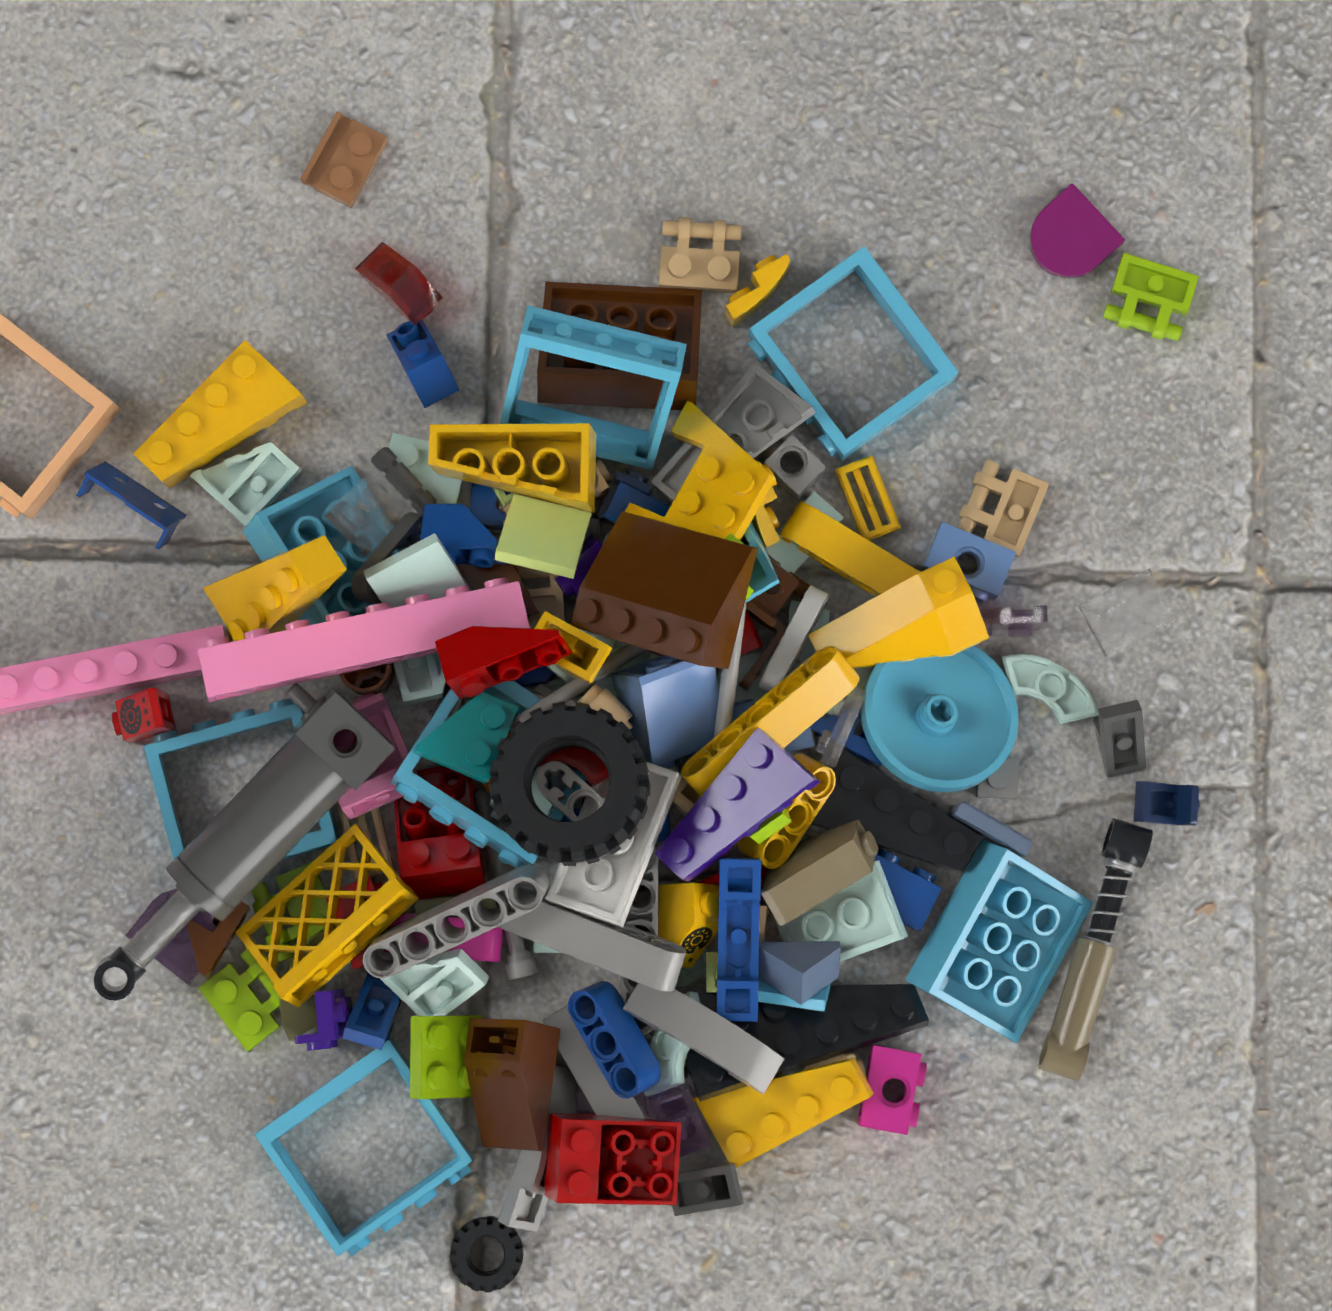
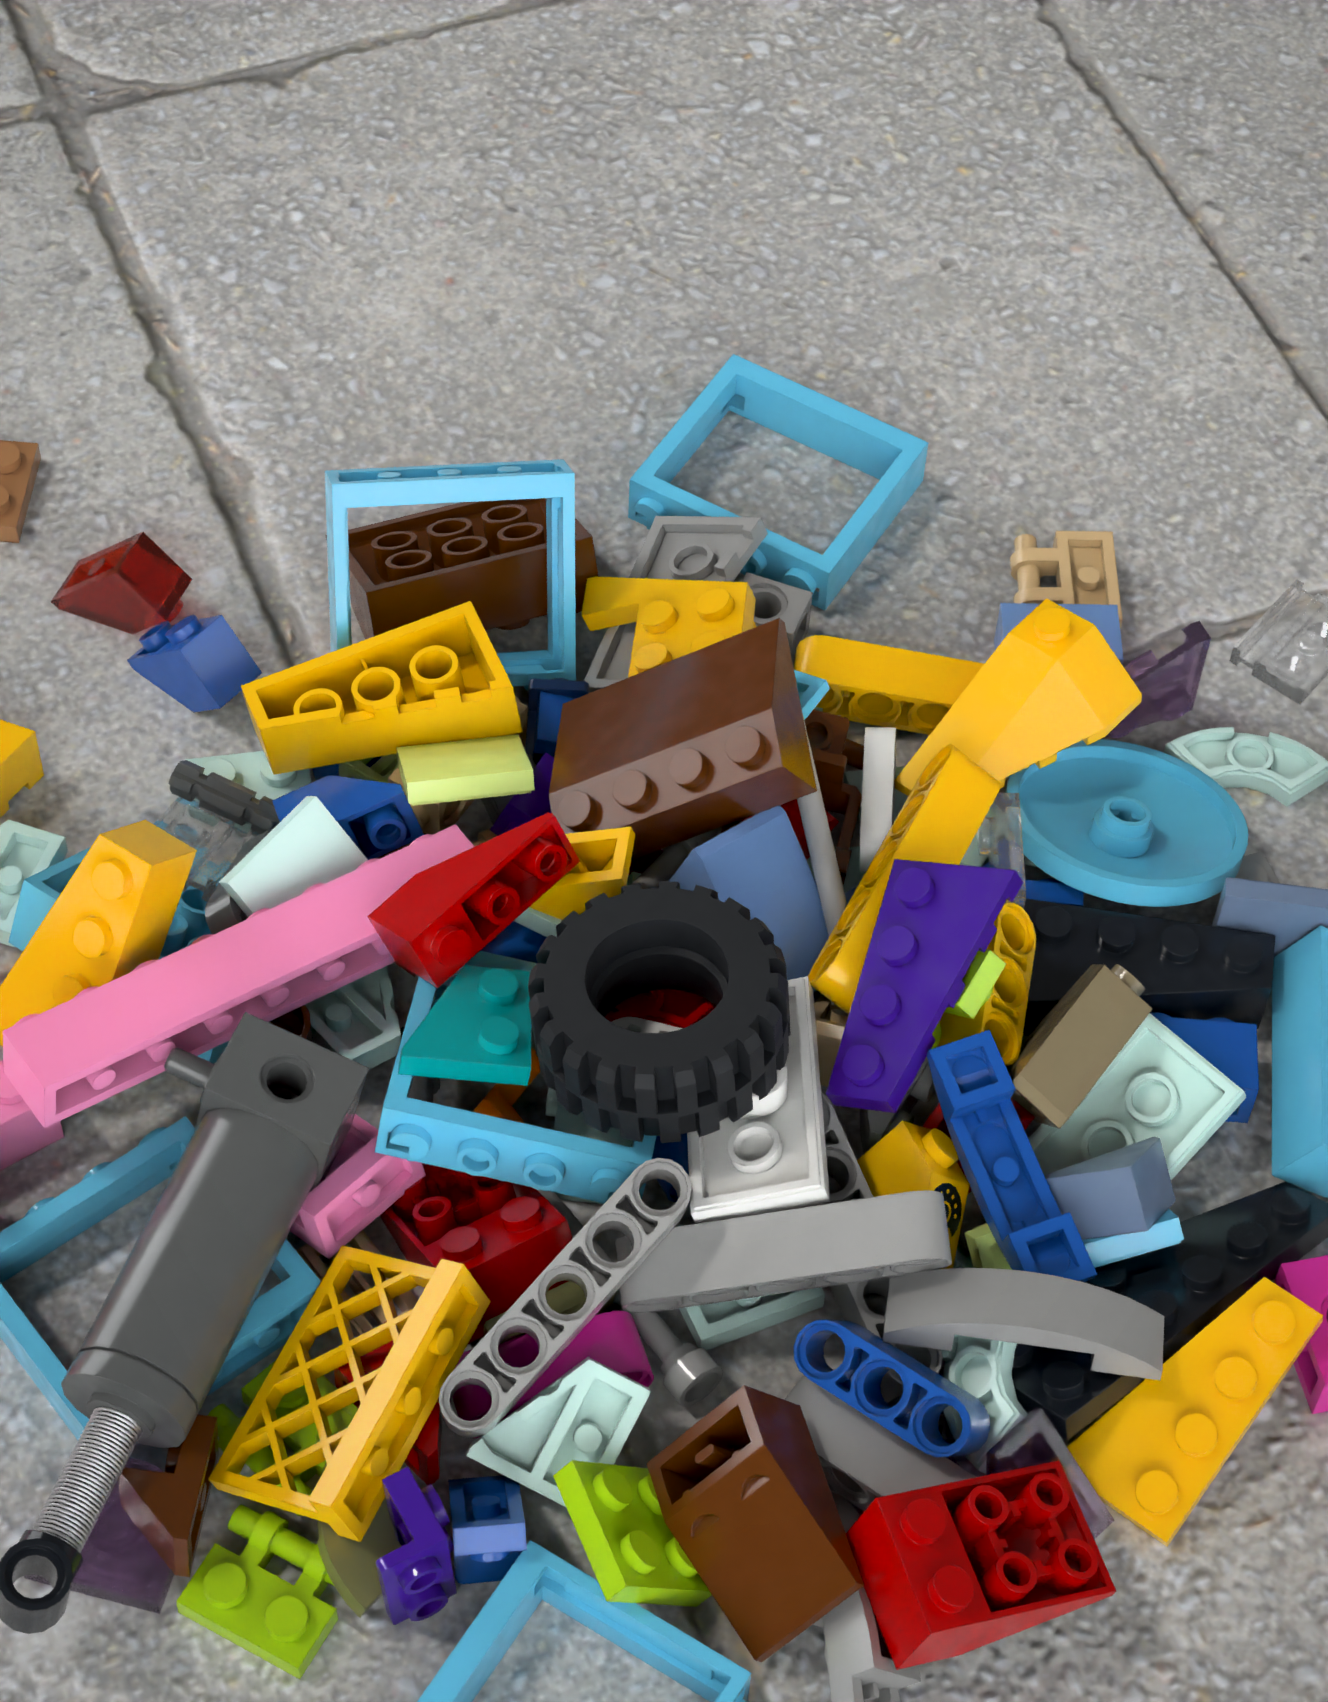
camera: 25 degrees left, 30 degrees down
(700, 268) = (538, 444): tan plate -> none
(708, 1189) = (1150, 1570): dark grey slope -> none
(766, 280) = (614, 464): yellow slope -> none
(855, 467) = (852, 623): yellow tile -> none
(1072, 236) = (985, 291): magenta tile -> none
(1153, 285) = (1112, 304): lime plate -> none

